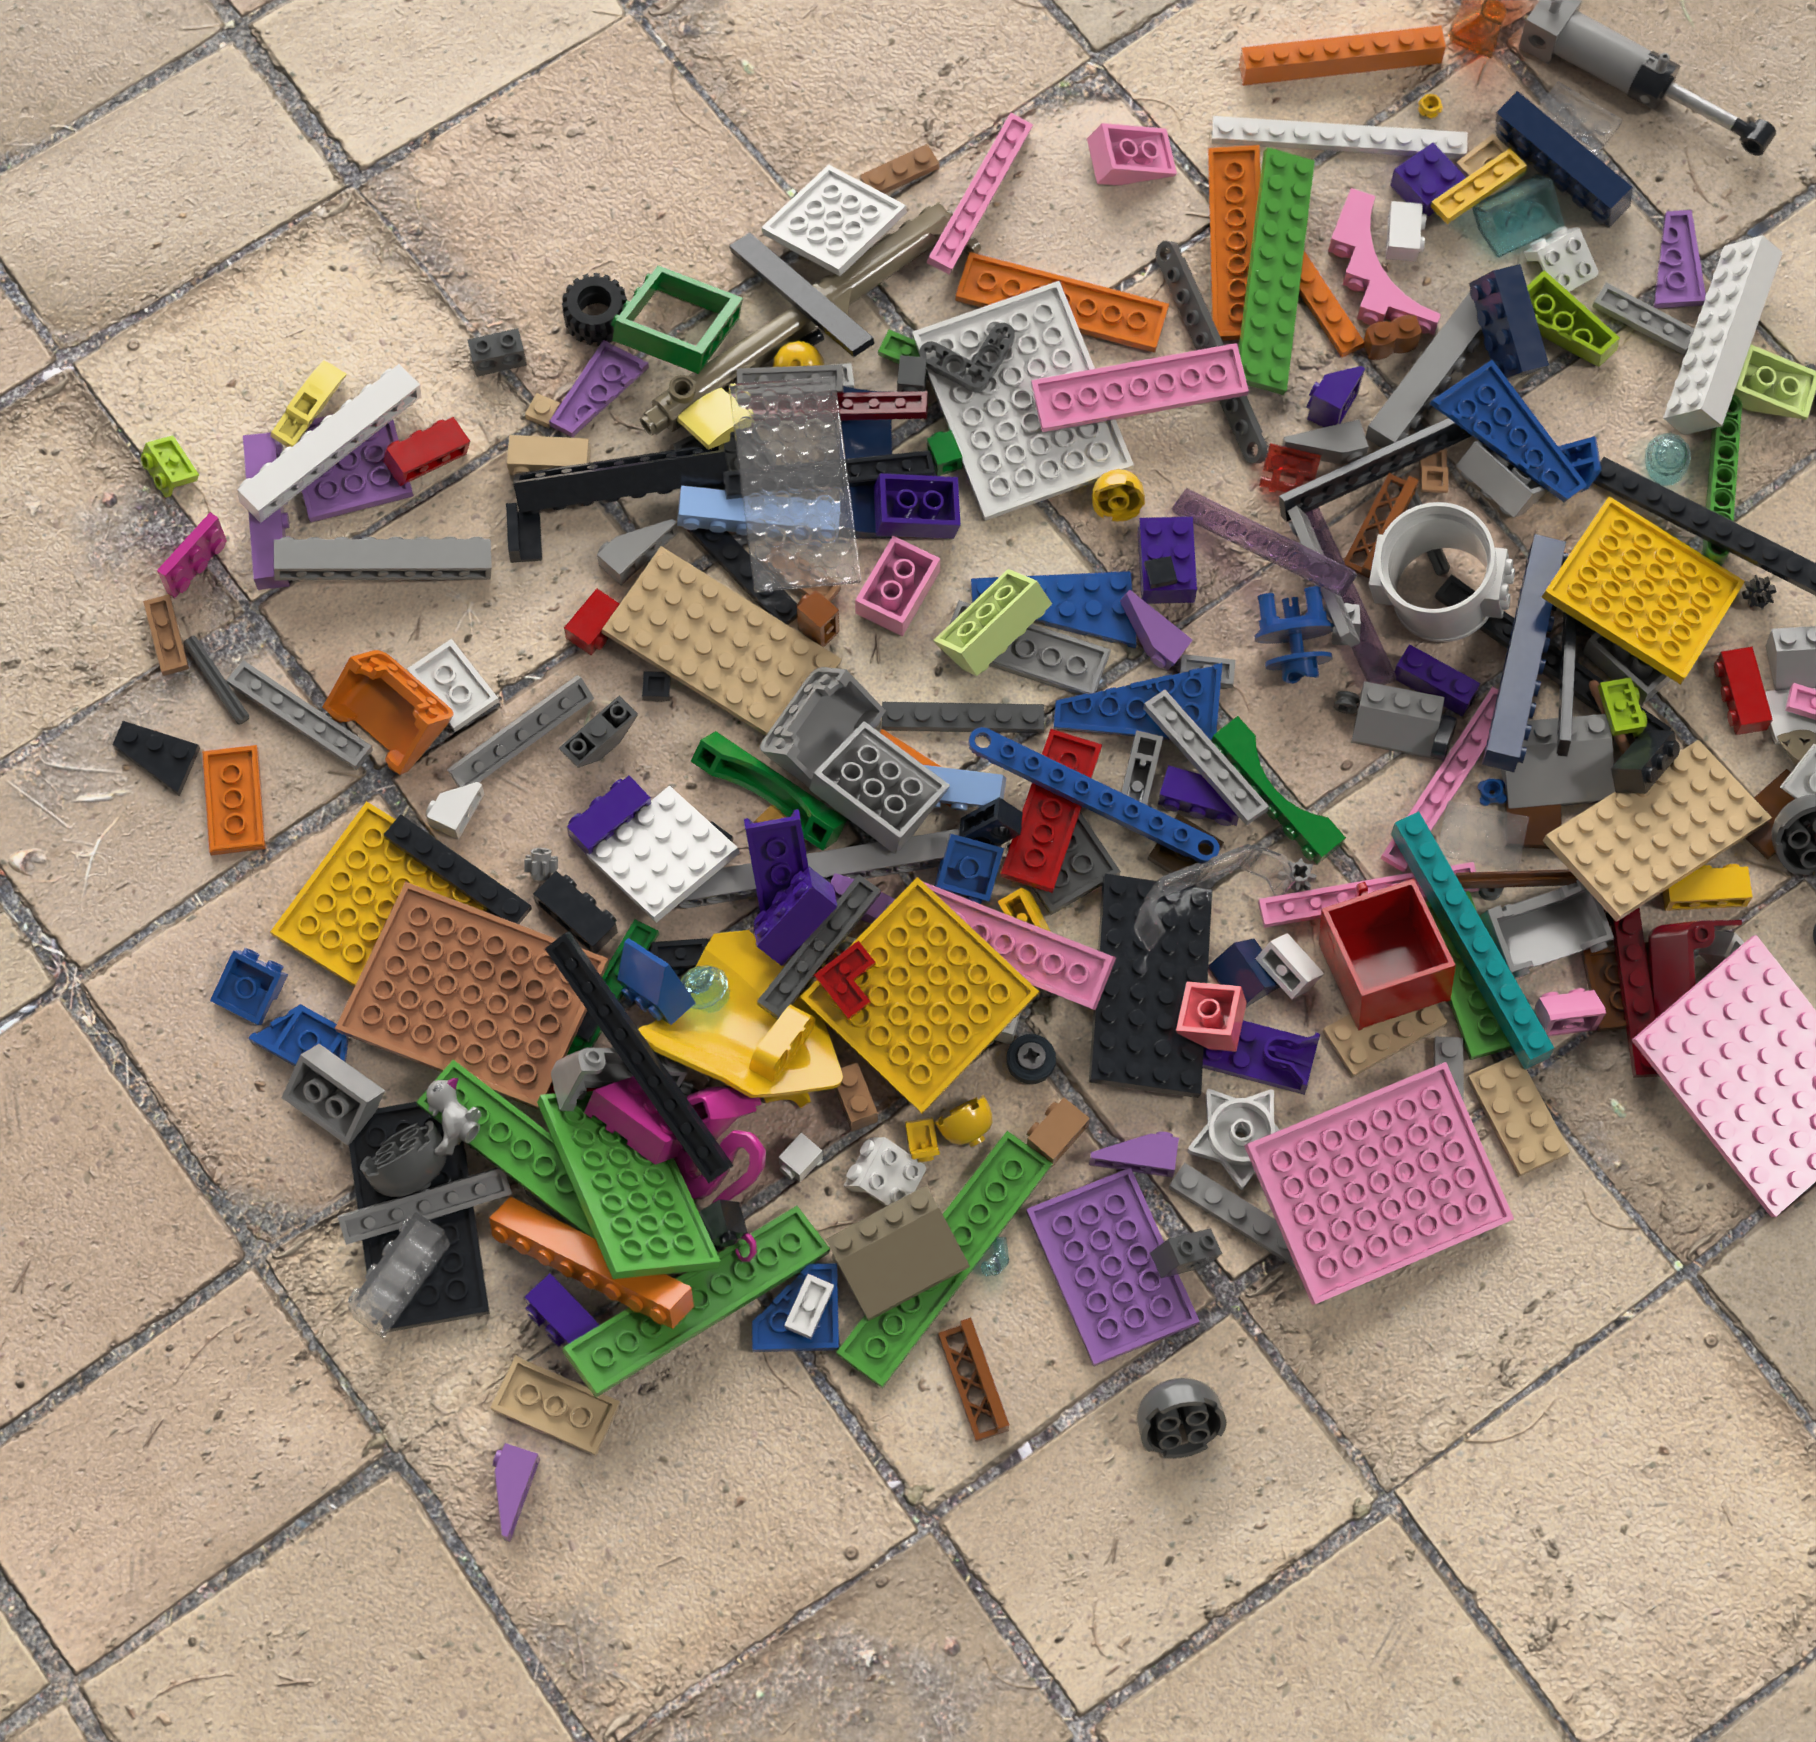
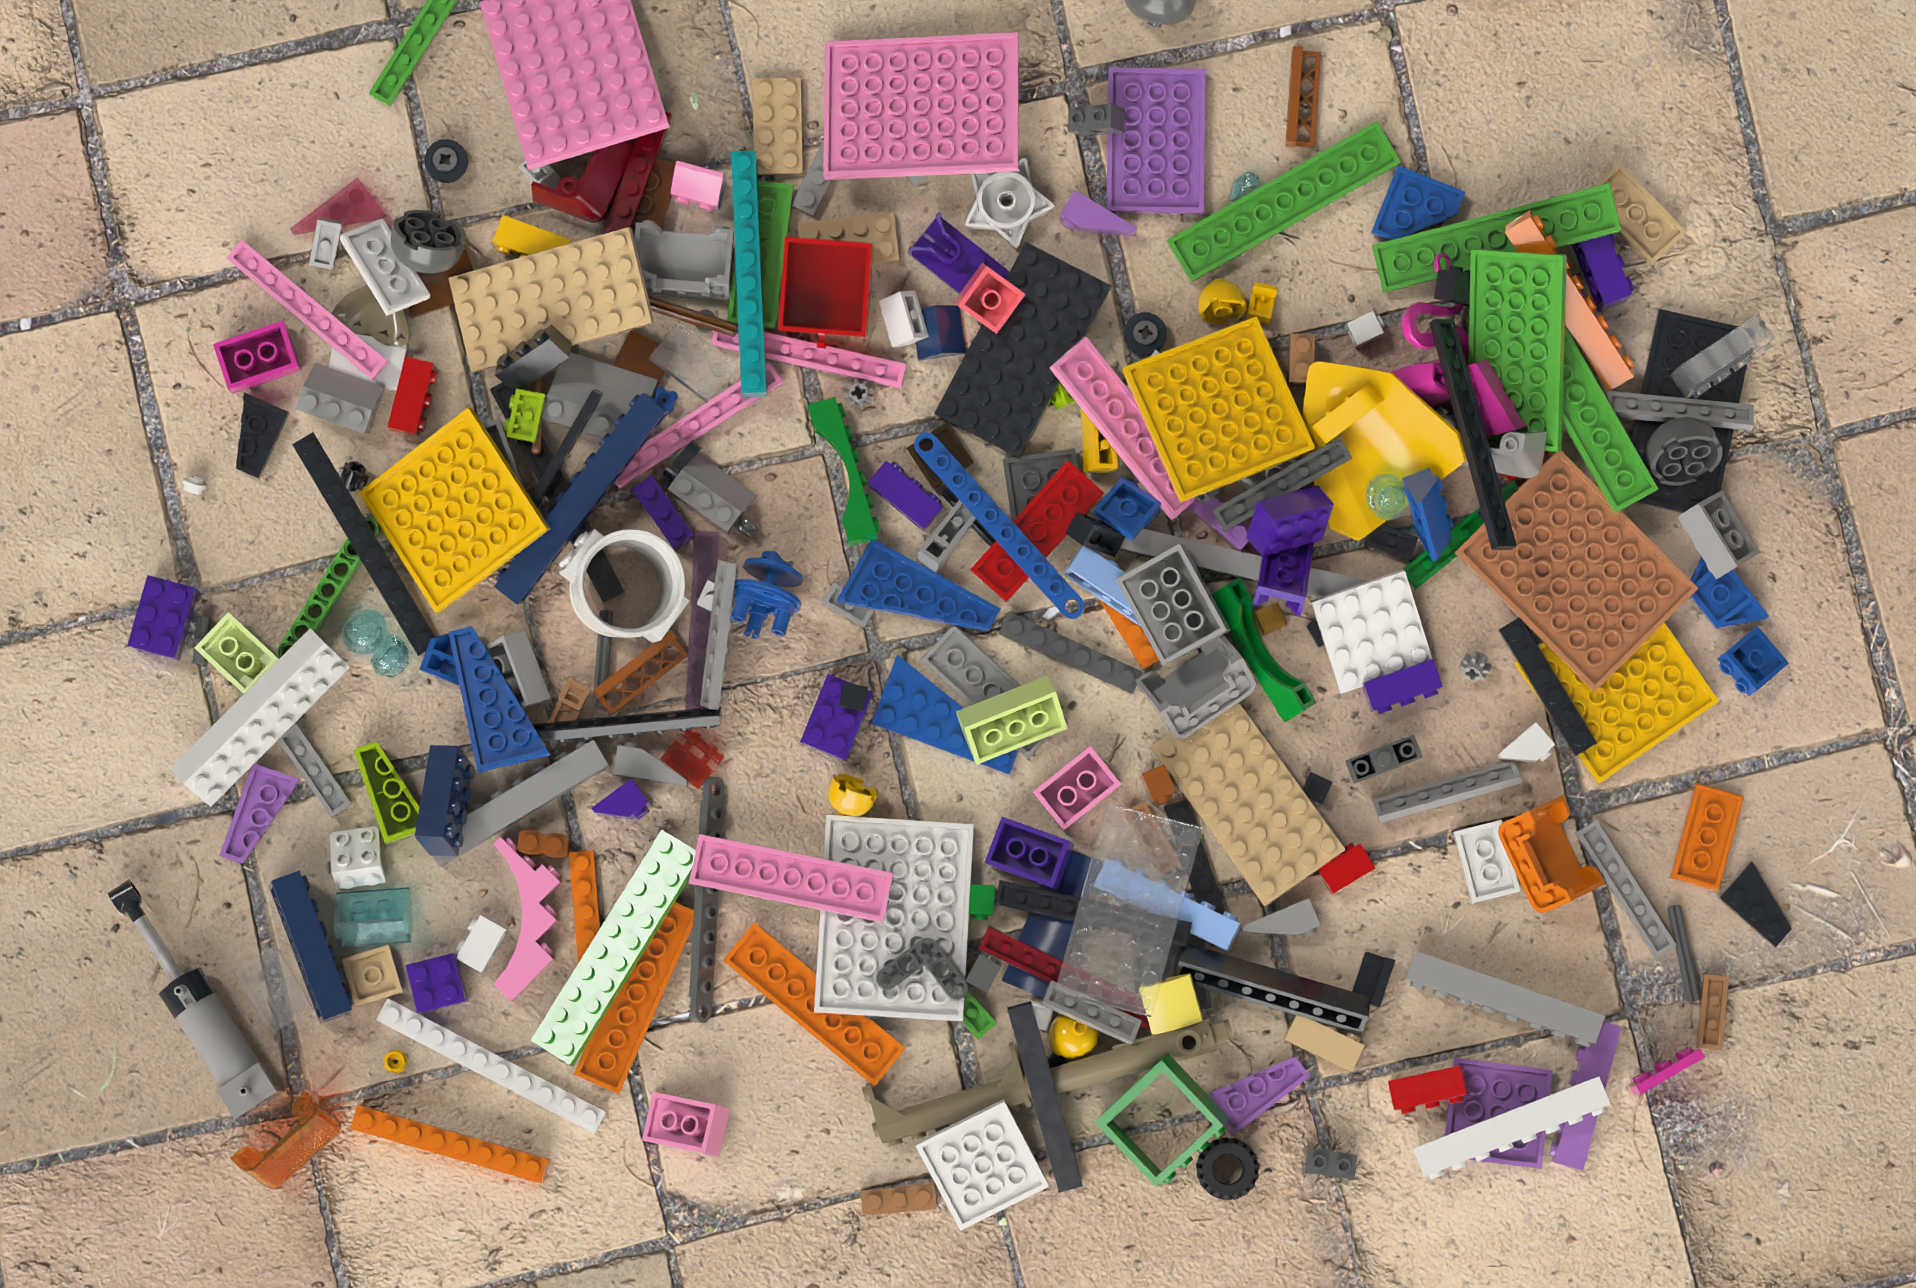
camera: 155 degrees left, 15 degrees up
(168, 464) = (1655, 1176): lime bracket -> none
(307, 404) = (1513, 1179): light yellow slope -> none
(457, 1121) = (1633, 453): light grey animal -> none
(514, 1477) = (1690, 170): medium lavender slope -> none
(541, 410) = (1310, 1093): tan plate -> none
(576, 911) = (1461, 613): black brick -> none
(809, 1306) = (1409, 202): white plate -> none
(840, 976) = (1280, 441): red plate -> none
(884, 1171) = (1303, 289): white bracket -> none
(897, 1252) = (1322, 215): dark tan slope -> none
(979, 194) = (841, 1136): bright pink plate -> none
(1057, 1130) = (1151, 264): medium nougat brick -> none
(1157, 634) = (877, 648): medium lavender slope -> none
(1205, 757) = (891, 519): light grey plate -> none
(1231, 1210) = (1045, 152): light grey plate -> none
(1258, 861) = (996, 407): clear windscreen -> none
(1265, 542) = (754, 686): clear purple plate -> none
(1478, 186) = (397, 954): yellow plate -> none
(1629, 442) = (390, 657): none -> clear light blue piece

